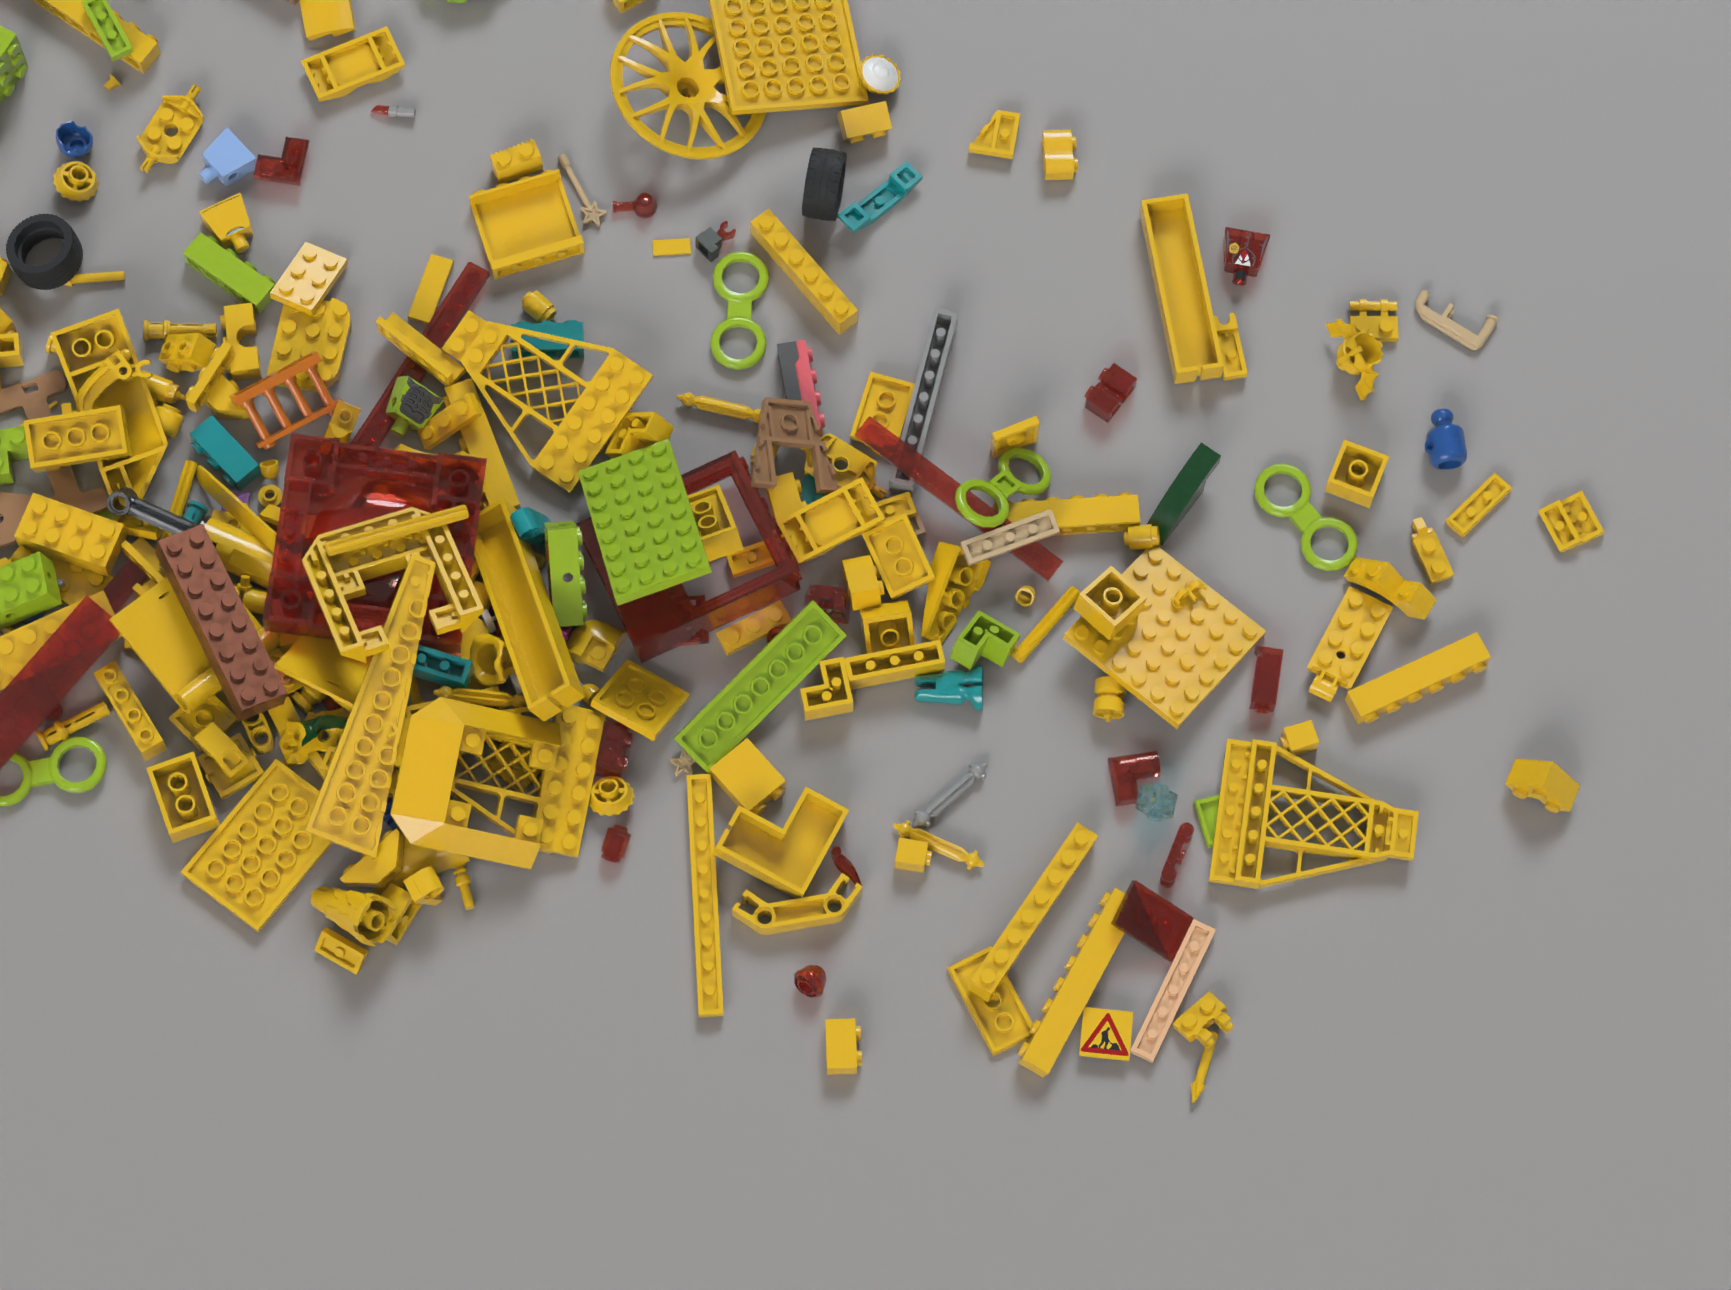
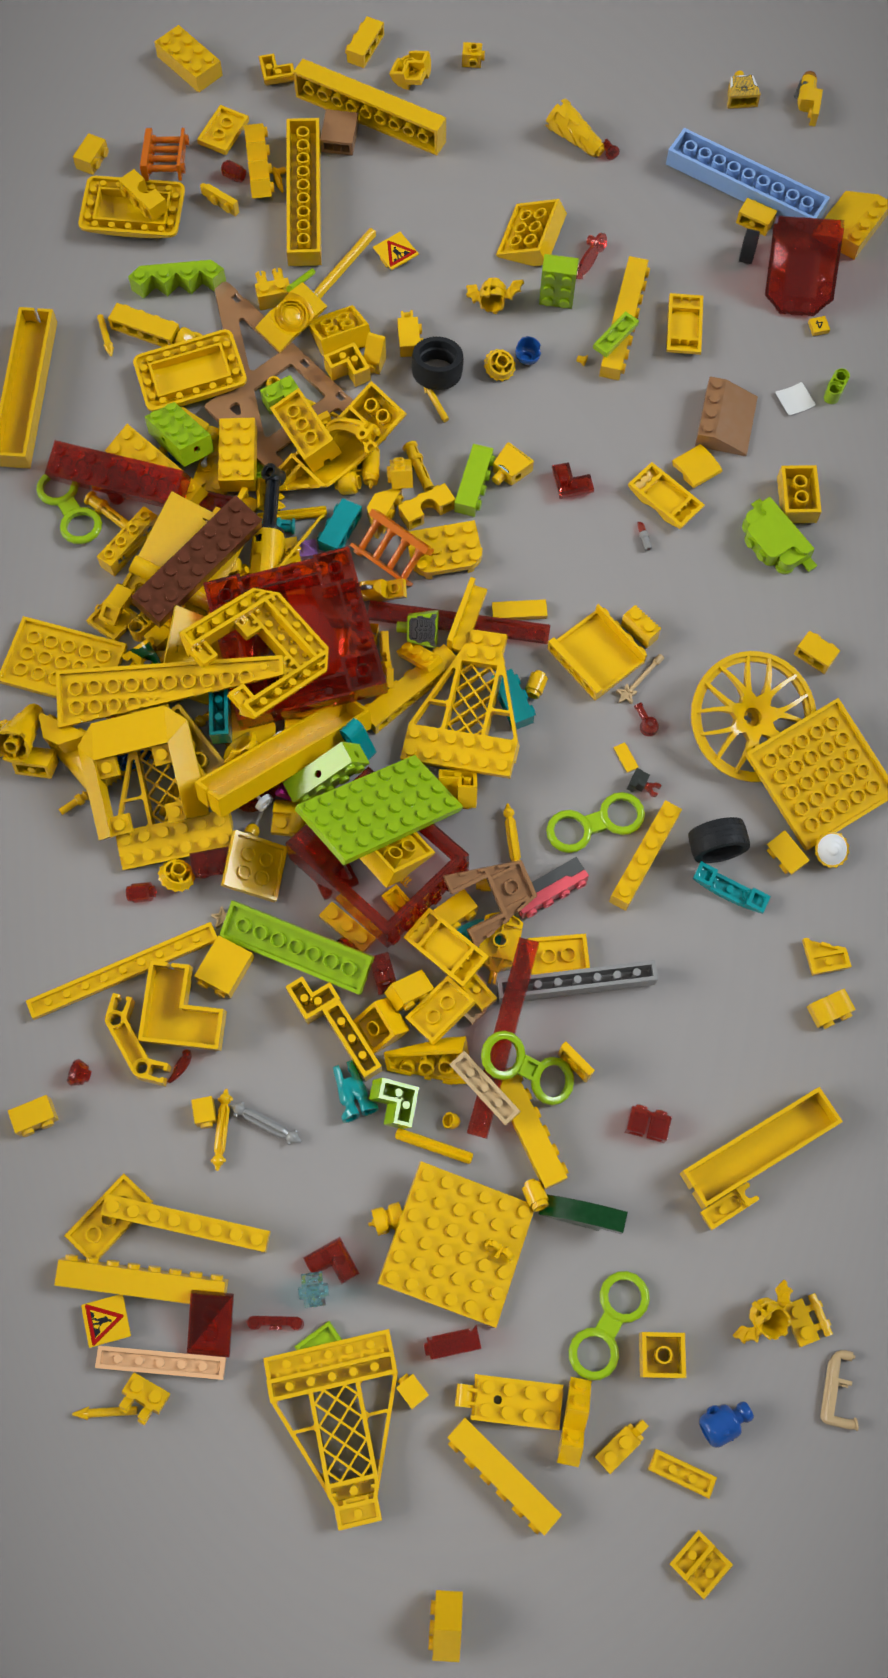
camera: 70 degrees right, 0 degrees up
(177, 113) = (550, 401): yellow plate -> none
(183, 797) = (75, 595): yellow brick -> none
(209, 376) = (385, 492): yellow plate -> none
(227, 160) = (557, 445): light blue torso -> none
(308, 278) = (491, 529): yellow plate -> none
(396, 530) = (301, 641): yellow axle -> none
(425, 887) = (57, 773): yellow plate -> none
(481, 697) = (206, 745): yellow wheel -> none
(1110, 602) = (457, 1187): yellow brick -> none
(1243, 253) = (815, 1188): clear red torso -> none

